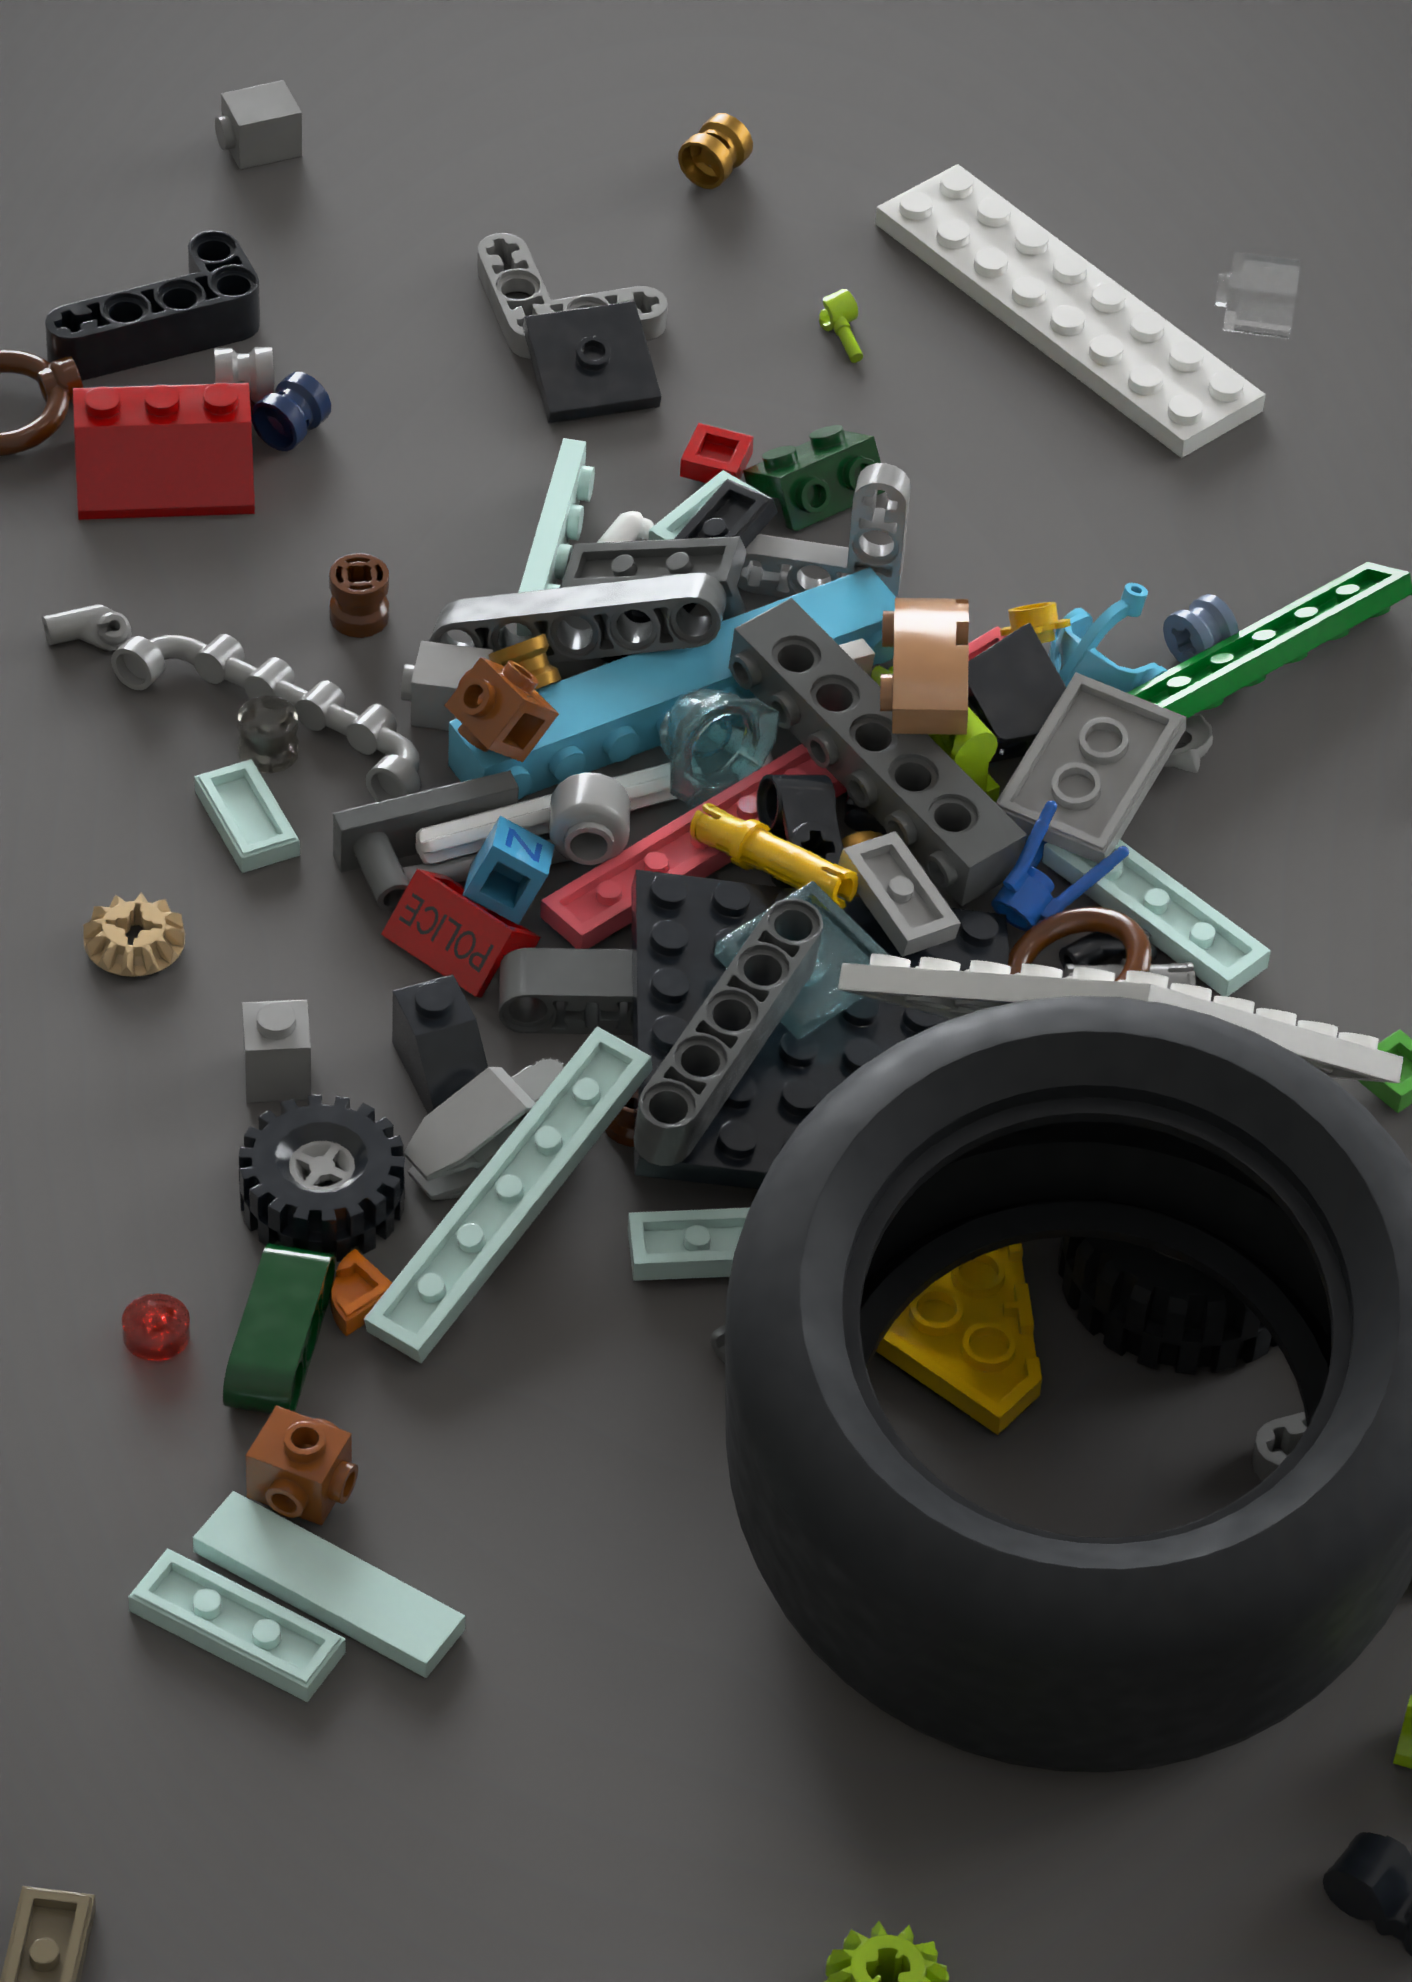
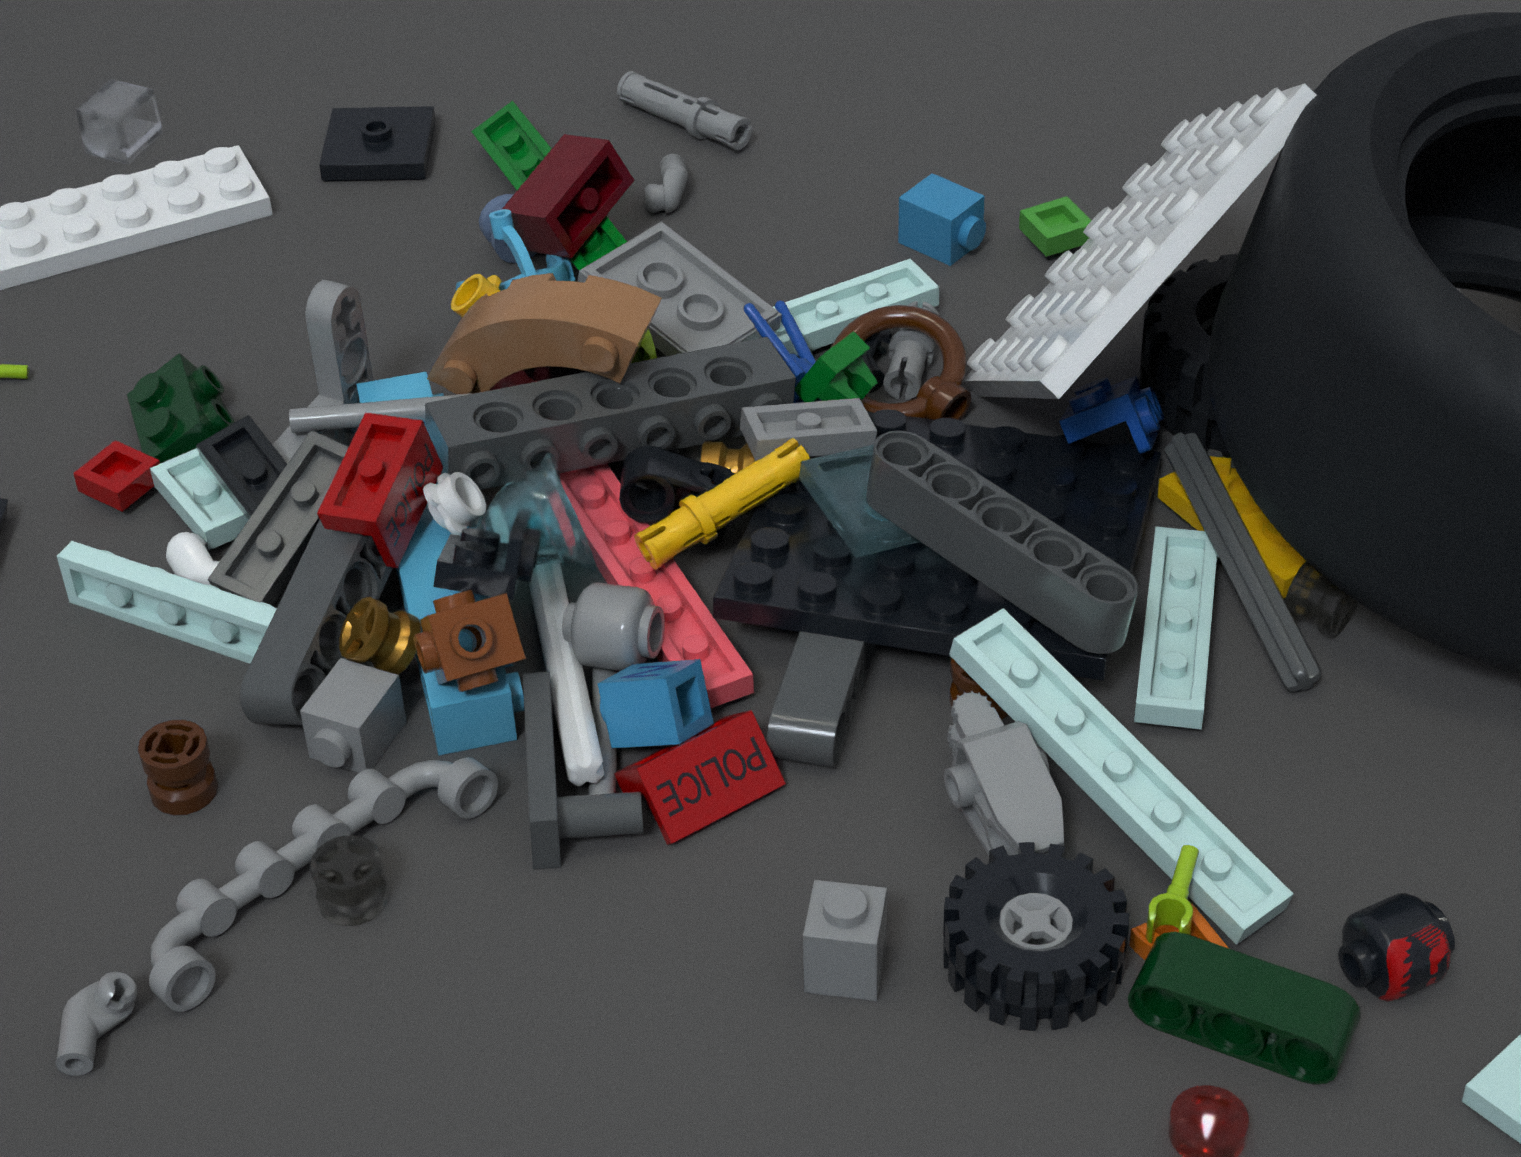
camera: 70 degrees left, 5 degrees down
(151, 952) = (621, 1075): tan gear -> none
(247, 816) = (453, 927): light aqua tile -> none
(300, 1466) = (1455, 1010): dark orange brick -> none
(357, 1257) = (1173, 907): none -> lime hand
(385, 1429) = (1396, 946): none -> black head
(436, 1039) = (879, 809): black slope -> none
(605, 696) = (485, 564): none -> black bracket
(666, 601) = (383, 483): none -> red panel
(686, 648) = (455, 502): none -> white plate
(820, 590) = (350, 415): none -> light grey bar
(1012, 900) = (838, 373): none -> green tile
(1204, 638) = (568, 195): none -> dark red brick
(1328, 500) = (378, 144): none -> black plate
(1344, 740) = (669, 193): none -> light grey arm
(1361, 968) = (941, 219): none -> dark azure brick

